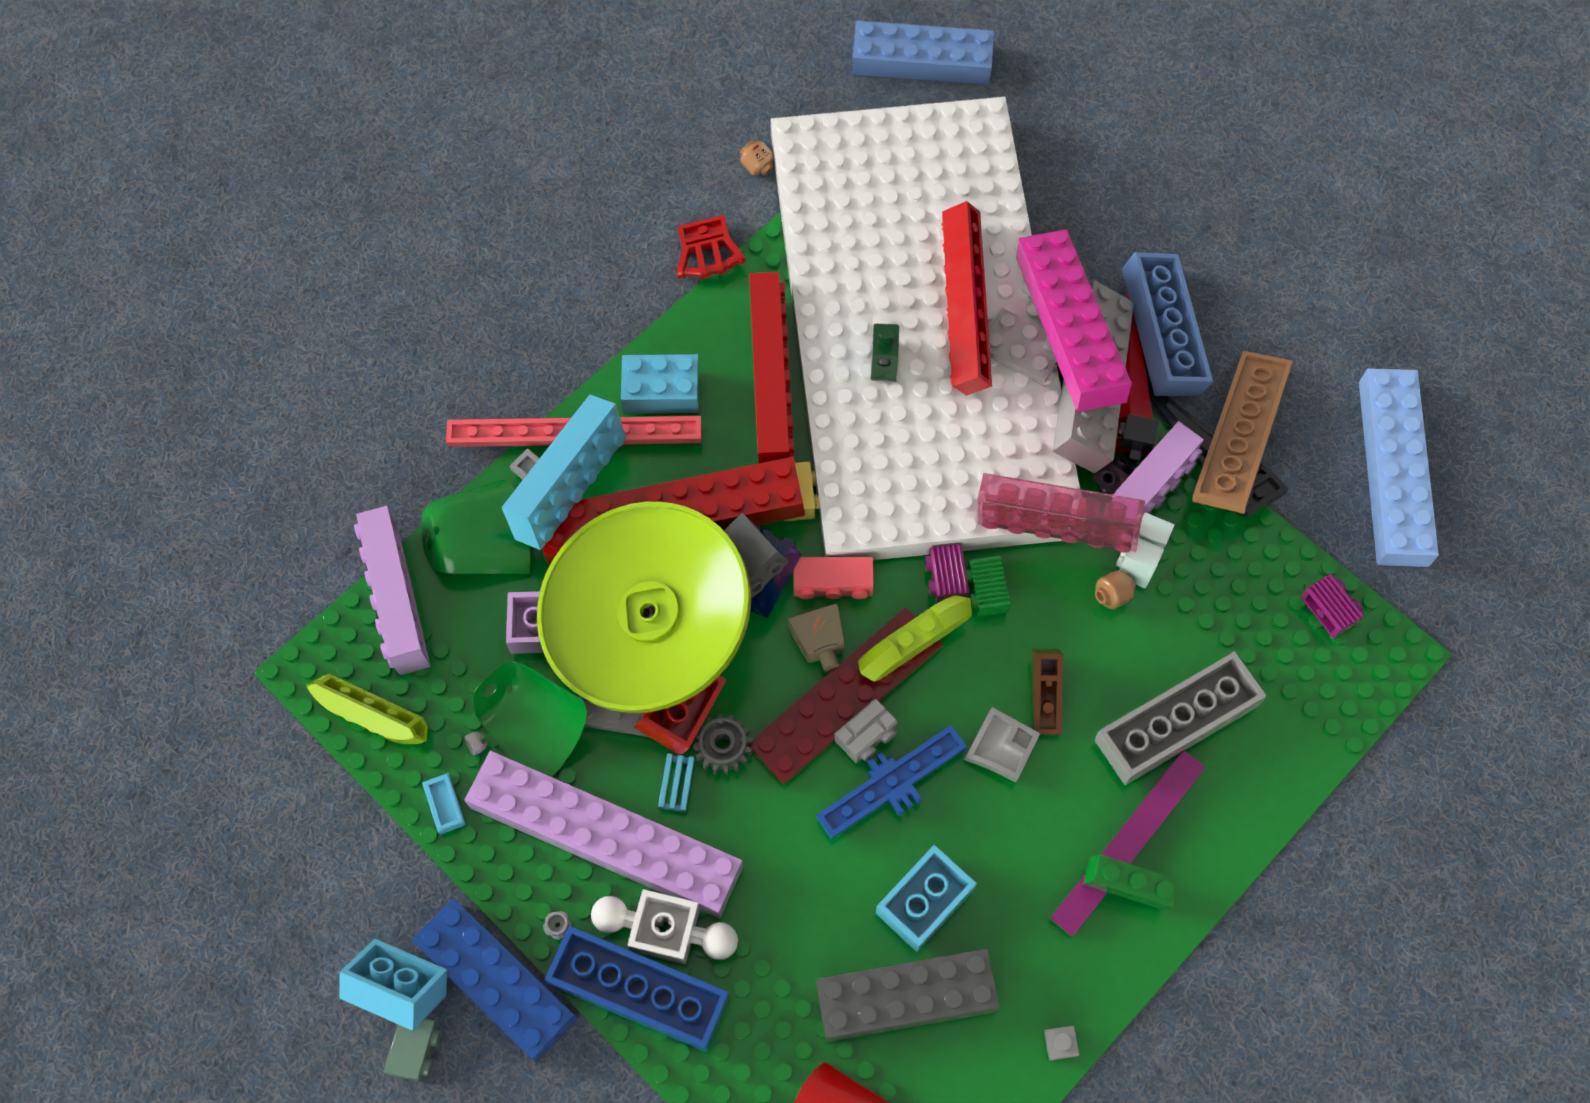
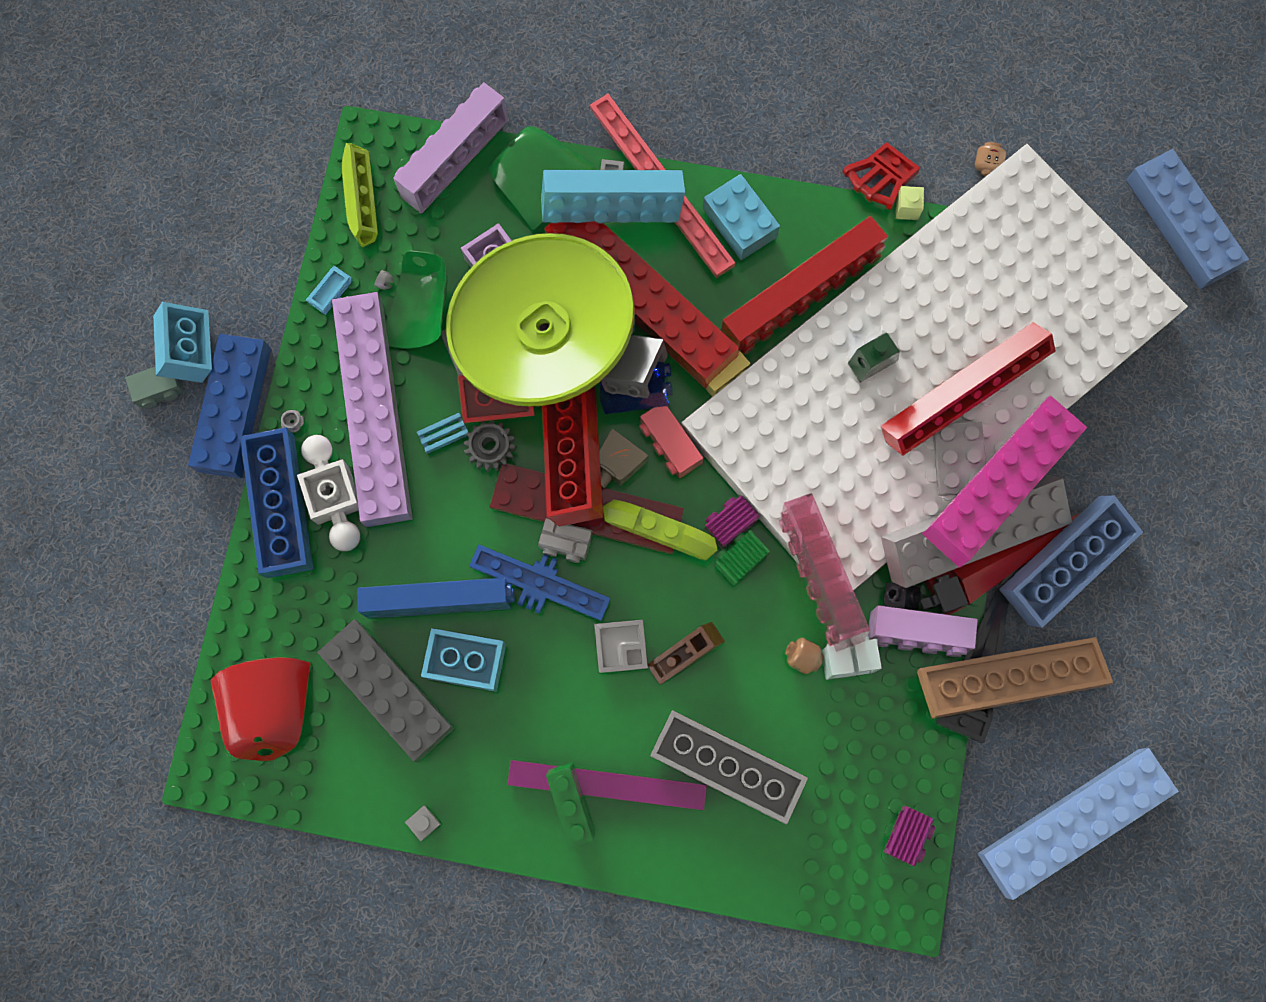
camera: 60 degrees right, 10 degrees up
(753, 241) = (909, 203): none -> yellowish green brick
(801, 672) = (572, 460): none -> red brick
(846, 886) = (435, 598): none -> blue brick

